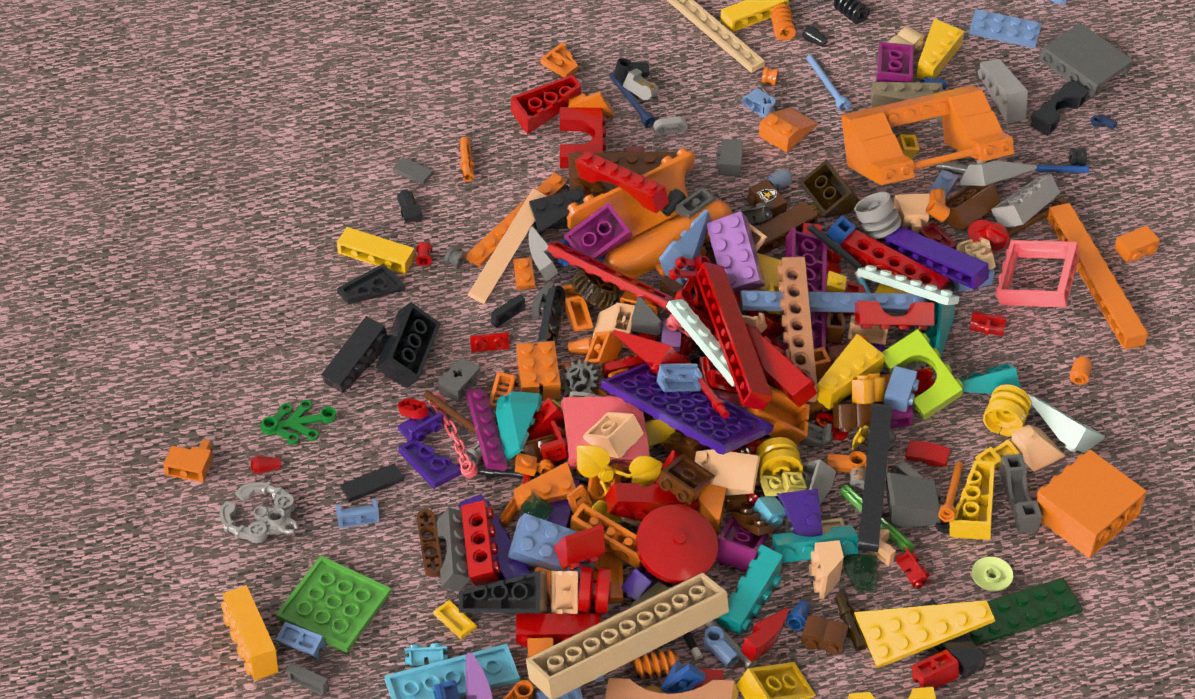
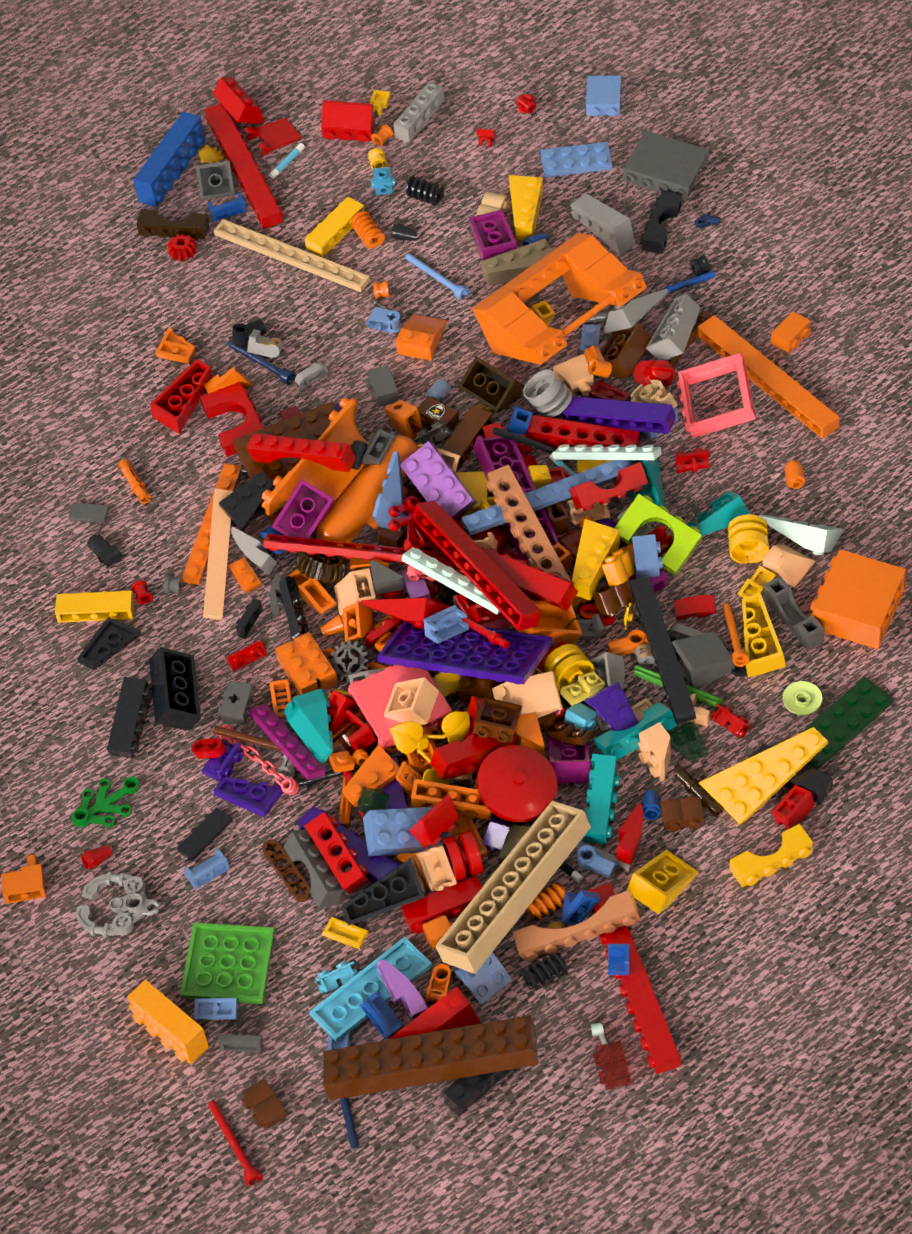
camera: 15 degrees left, 5 degrees up
(732, 185) = (402, 416): none -> orange torso

